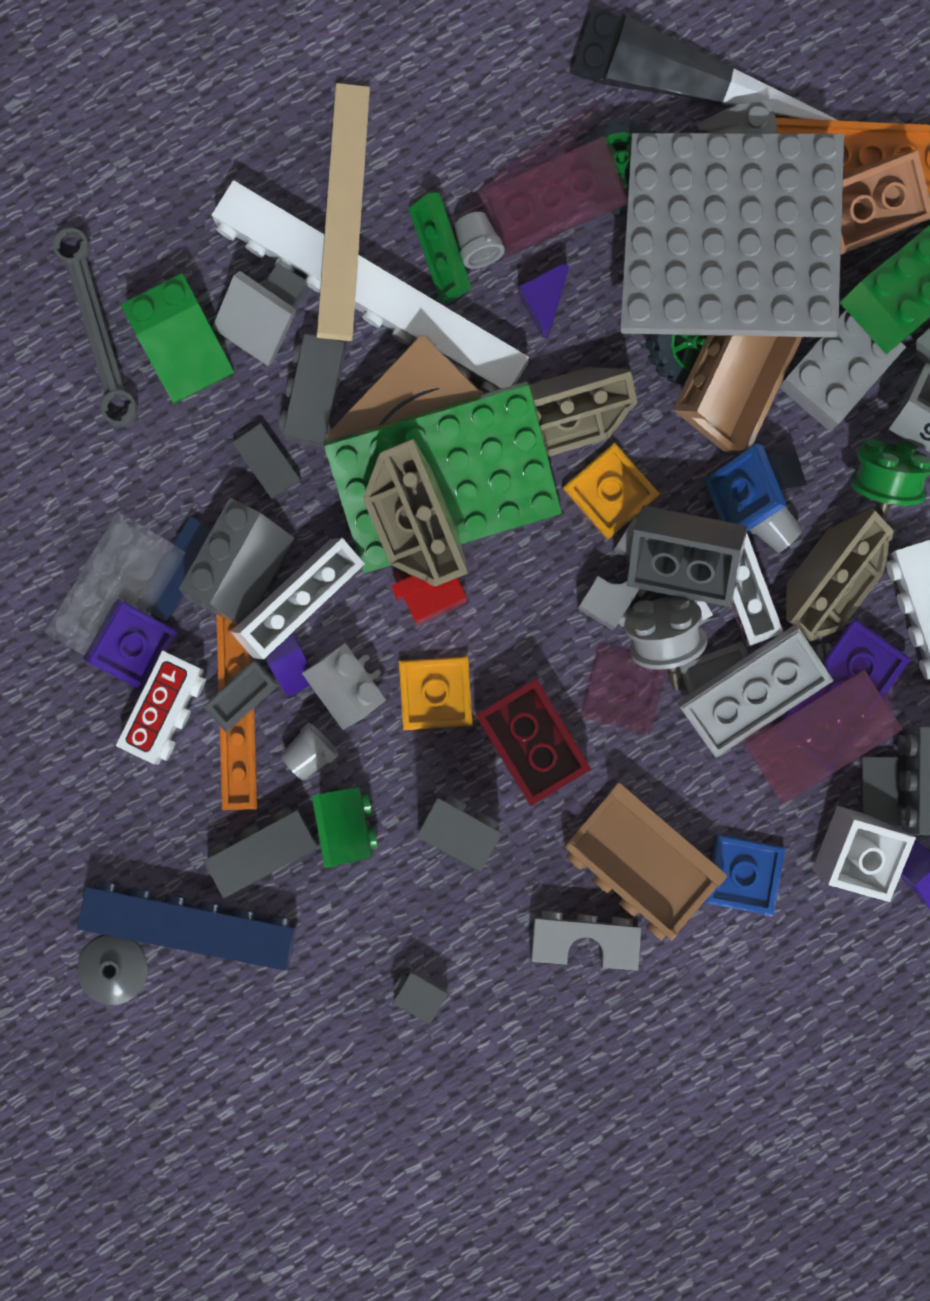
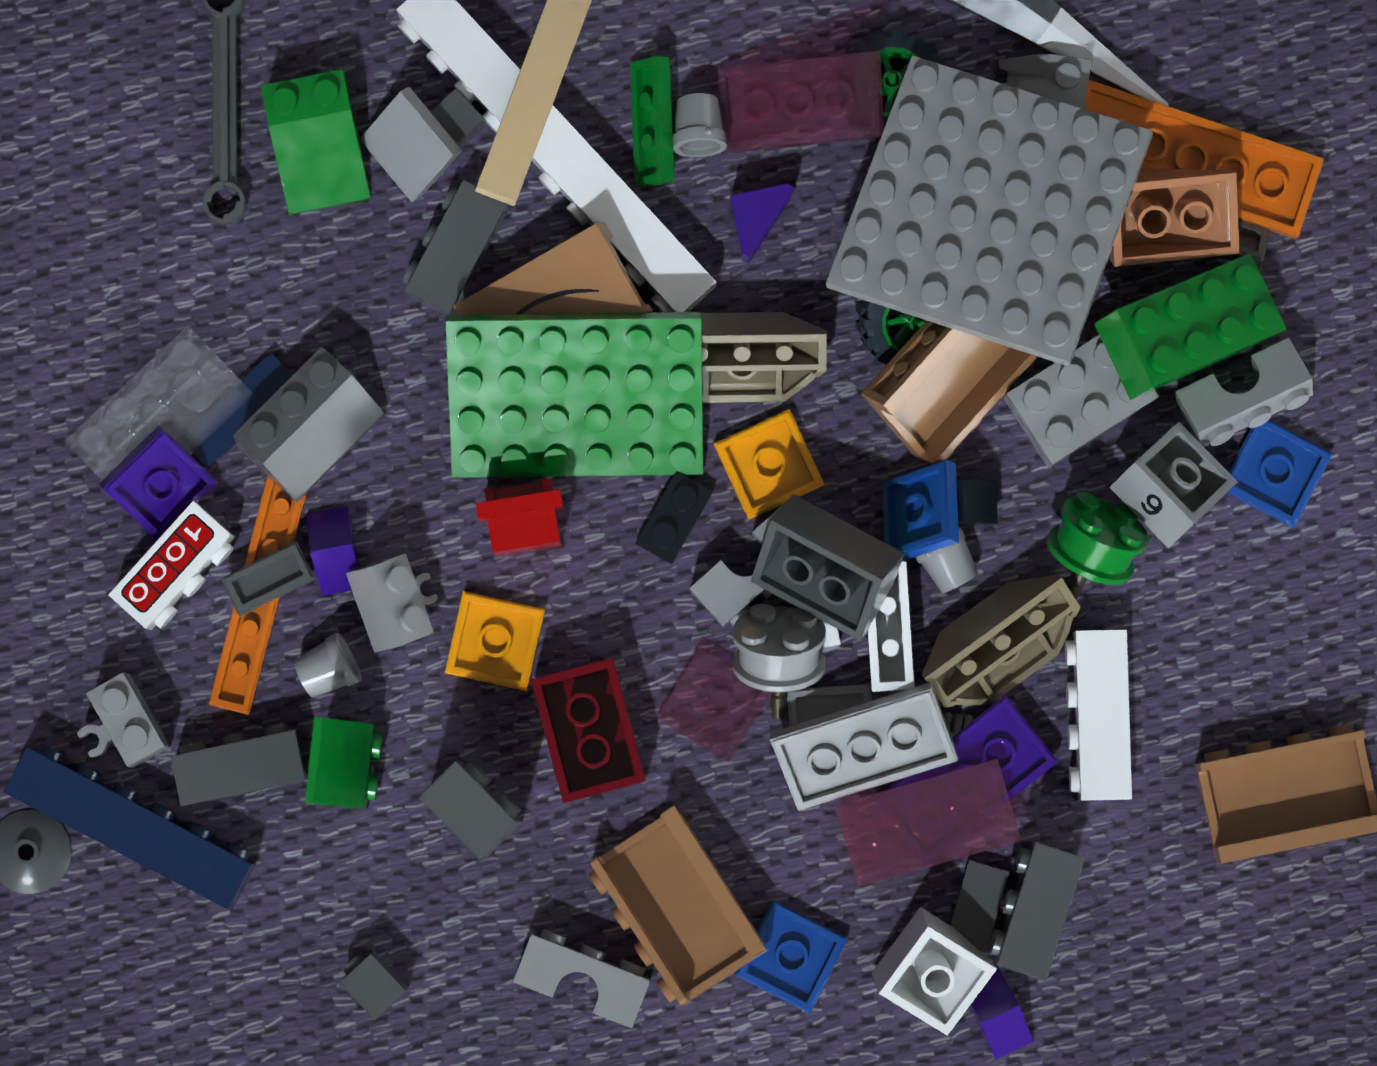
camera: 25 degrees right, 0 degrees up
(159, 843) = (125, 722): none -> light grey brick
(266, 461) = (377, 314): dark grey tile -> none
(297, 598) = (366, 485): white brick -> none
(413, 516) = (525, 432): dark tan wedge -> none
(548, 554) = (674, 517): none -> black plate

